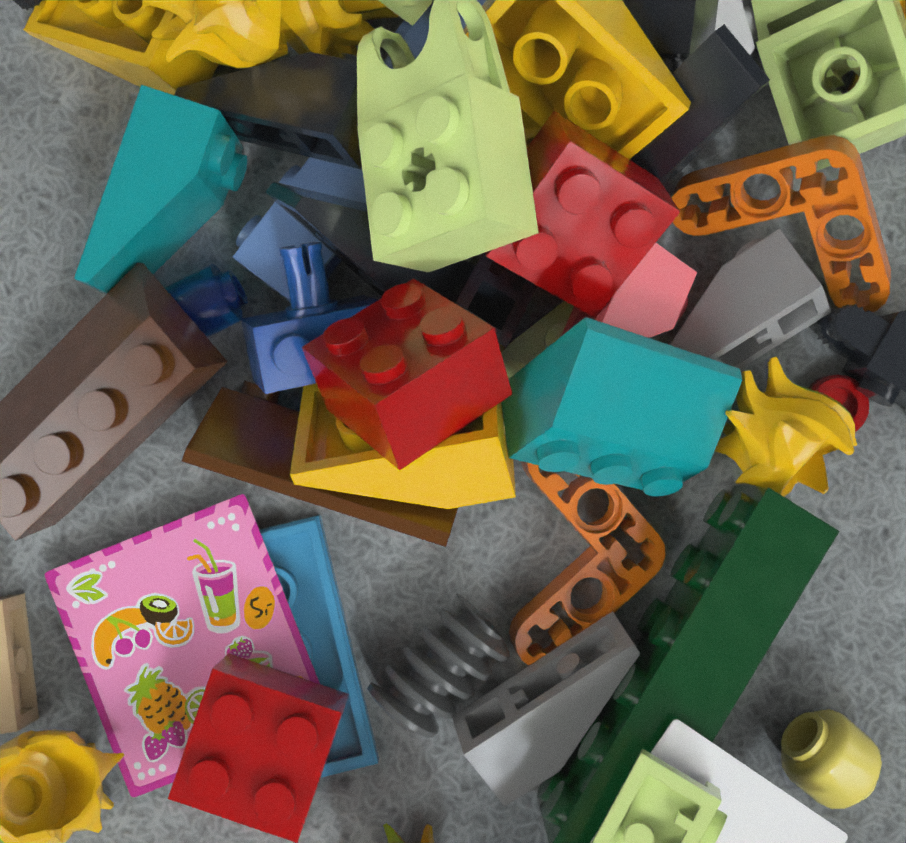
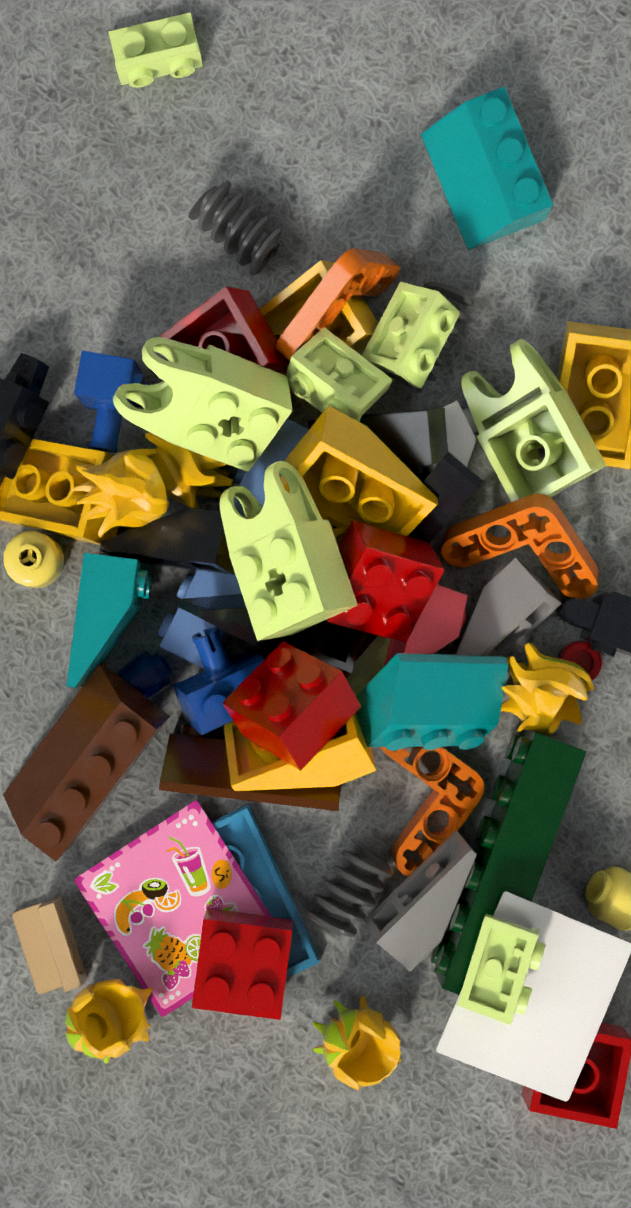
camera: 15 degrees left, 0 degrees up
(77, 99) = (46, 566): none -> light yellow head

